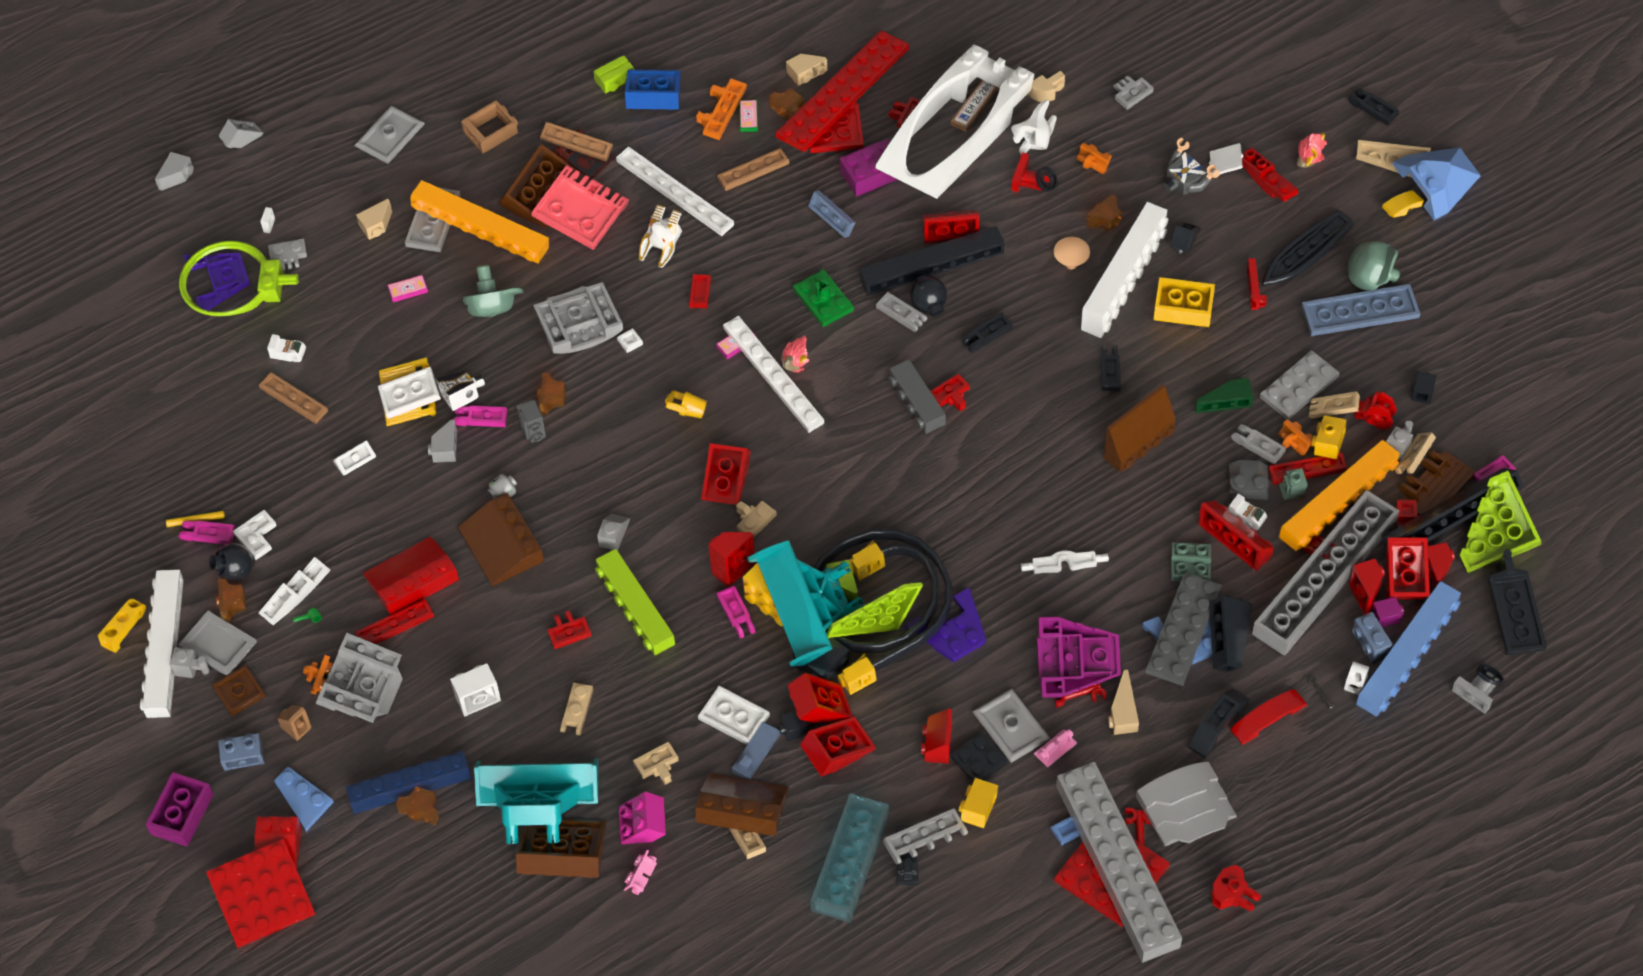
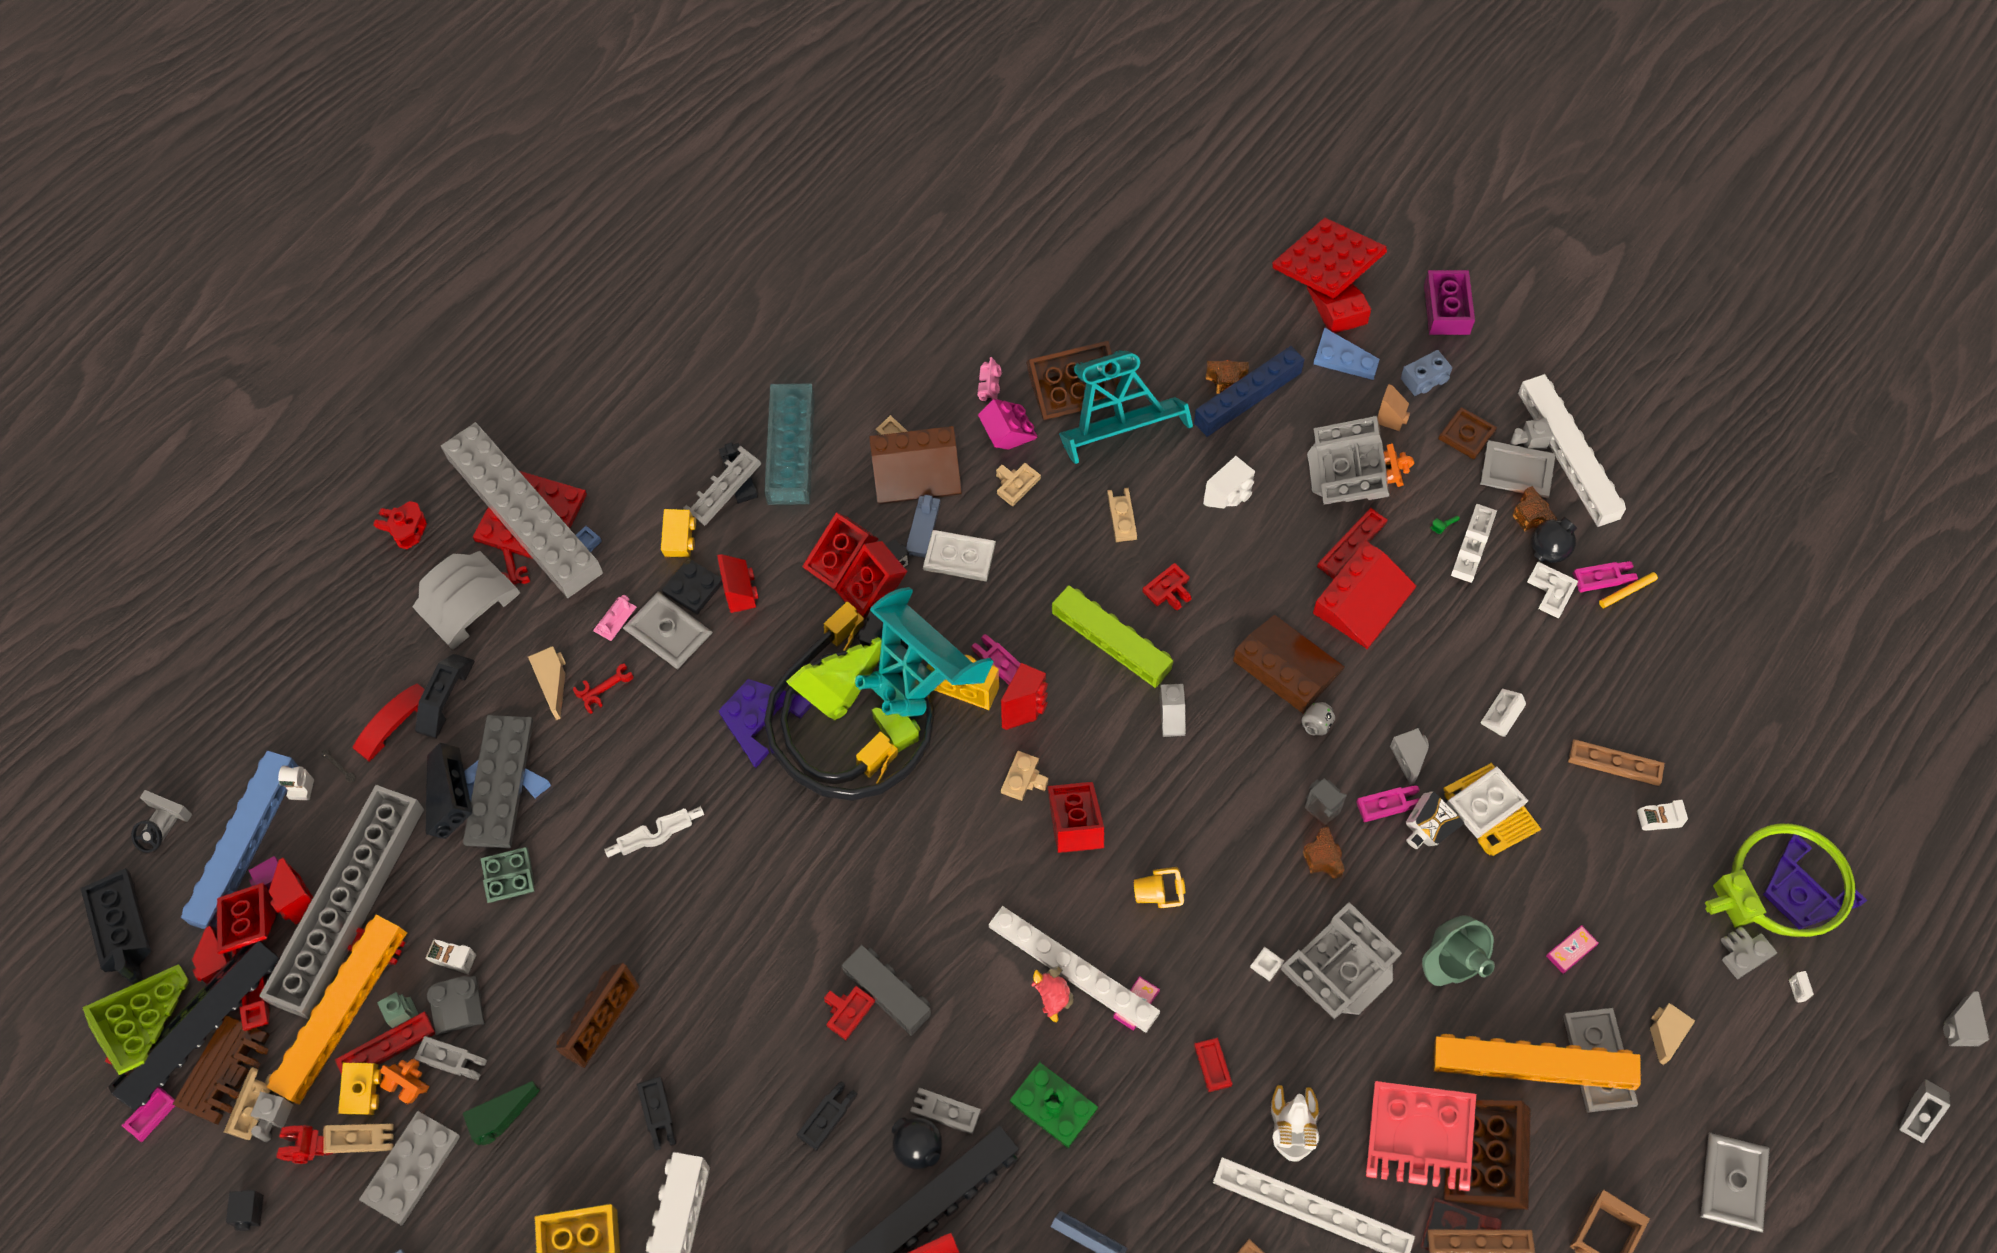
camera: 160 degrees right, 5 degrees up
(121, 624) = (1624, 454): yellow leg -> none
(1074, 656) = (611, 703): magenta wedge -> none
(1235, 534) = (457, 917): red slope -> none
(1371, 637) = (284, 839): sand blue brick -> none

